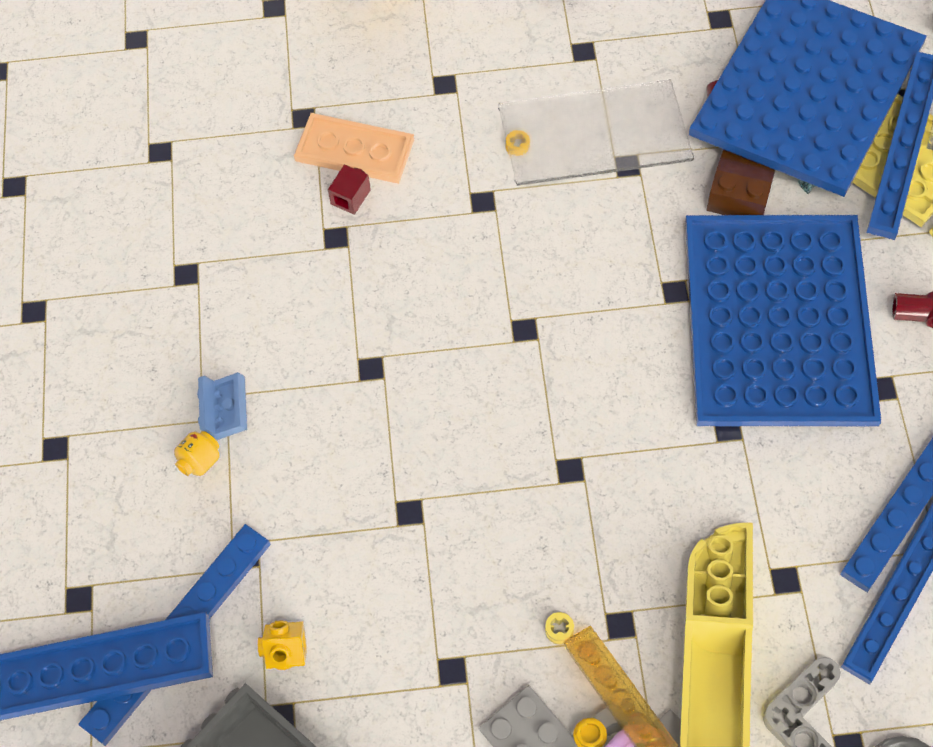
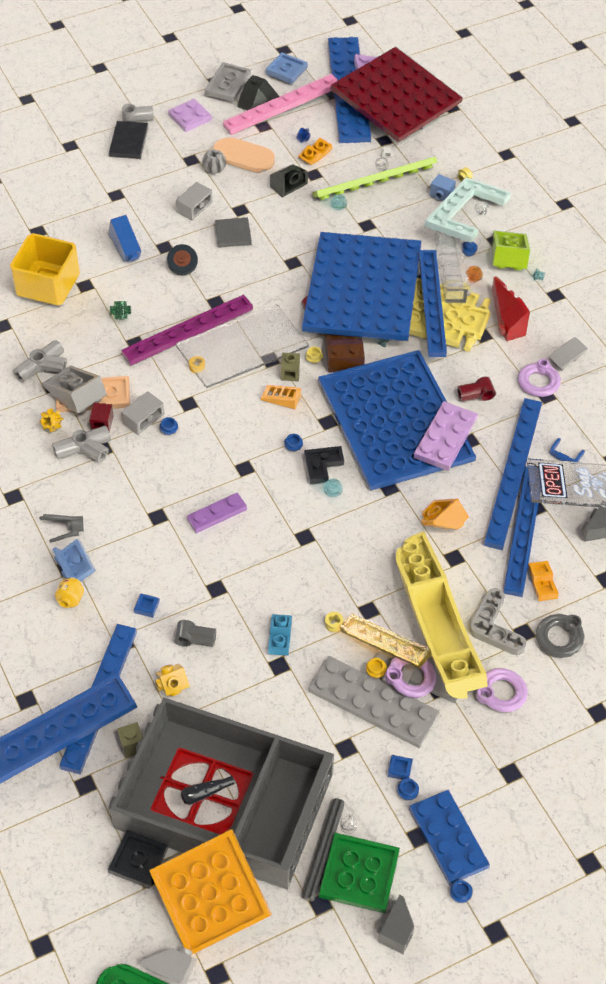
camera: 25 degrees left, 10 degrees down
(186, 719) = (129, 738): none -> olive brick
(247, 344) = (75, 524): none -> dark grey plant
(278, 173) = (51, 420): none -> yellow gear
(299, 507) = (146, 605): none -> blue tile
(302, 77) = (42, 360): none -> light grey piece
(316, 230) = (84, 443): none -> light grey piece
(329, 134) = (76, 388): none -> light grey slope
(340, 576) = (188, 633): none -> dark grey piece
(409, 199) = (142, 413): none -> light grey brick
(439, 230) = (168, 426): none -> blue plate
(440, 28) = (120, 310): none -> clear green gear
(456, 390) = (216, 512): none -> medium lavender plate
(471, 622) = (280, 634): none -> dark azure slope
(524, 84) = (187, 329): none -> magenta plate
(610, 311) = (293, 442): none -> blue plate
(629, 244) = (291, 398): none -> light orange slope
(640, 350) = (319, 459): none -> black plate
(641, 404) = (333, 488): none -> clear light blue plate
(651, 187) = (290, 367): none -> olive brick
(694, 171) = (314, 354): none -> light yellow plate
(793, 506) = (444, 514): none -> light orange slope
(845, 373) = (445, 436): none -> lavender plate
(912, 669) = (542, 580): none -> light orange slope

